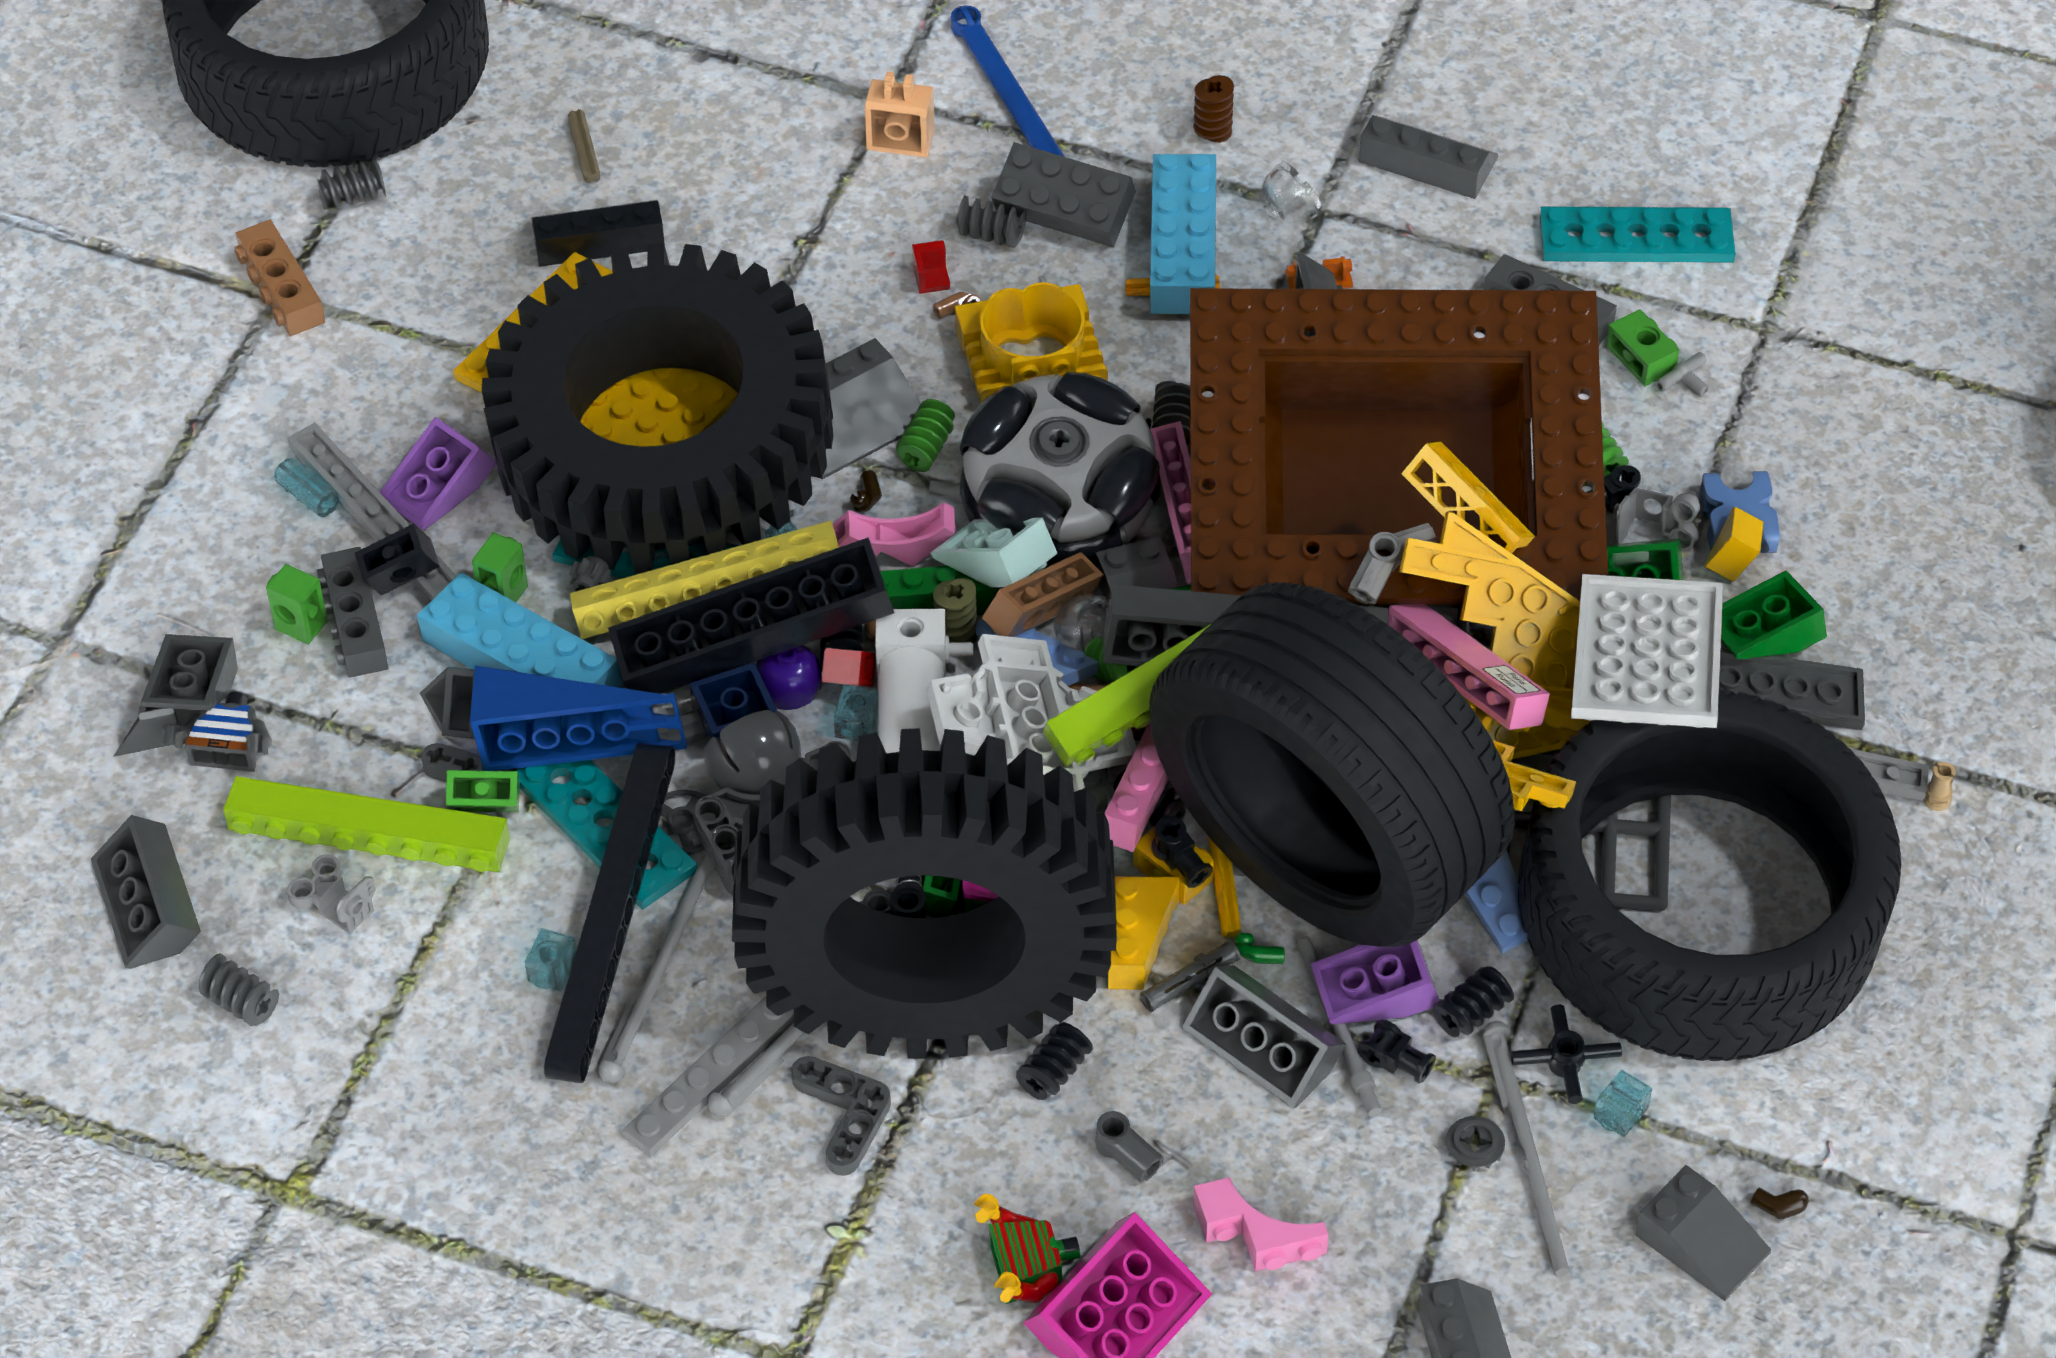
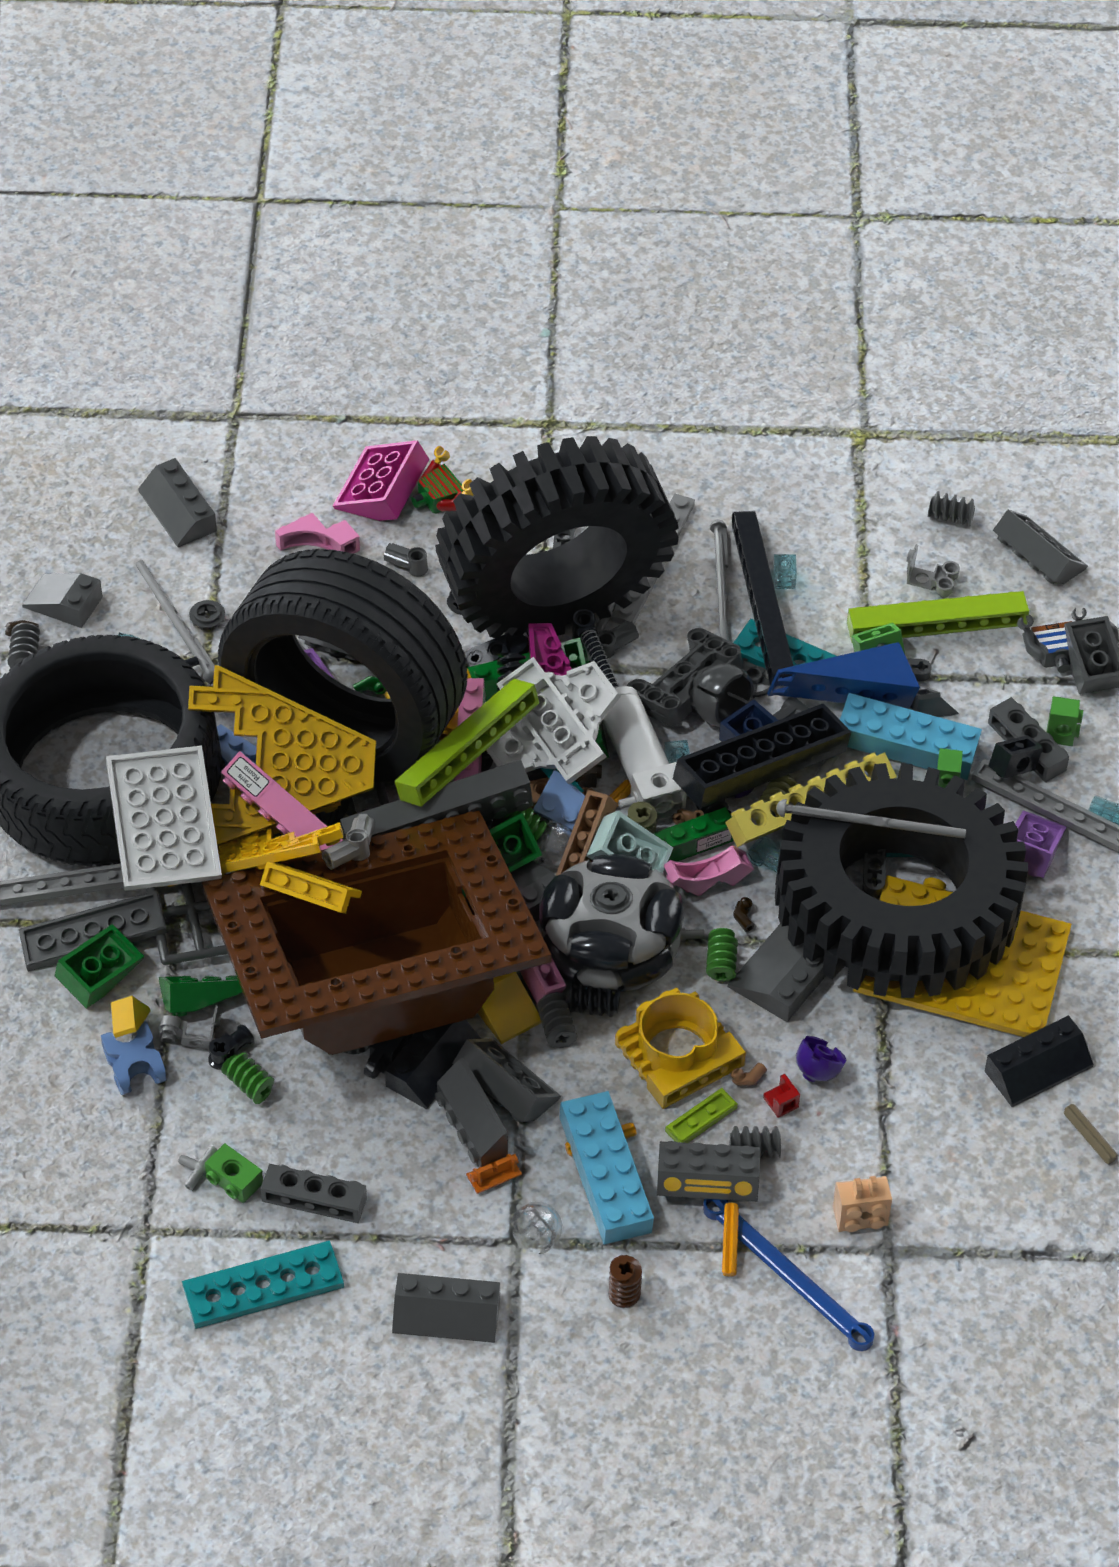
camera: 160 degrees right, 0 degrees up
(720, 439) = (783, 808): none -> light grey bar
(865, 278) = (818, 1061): none -> dark purple cylinder
(1060, 271) = (701, 1117): none -> lime tile
(1070, 131) = (730, 1239): none -> light orange axle
(1784, 1146) = (23, 642): none -> dark grey piece

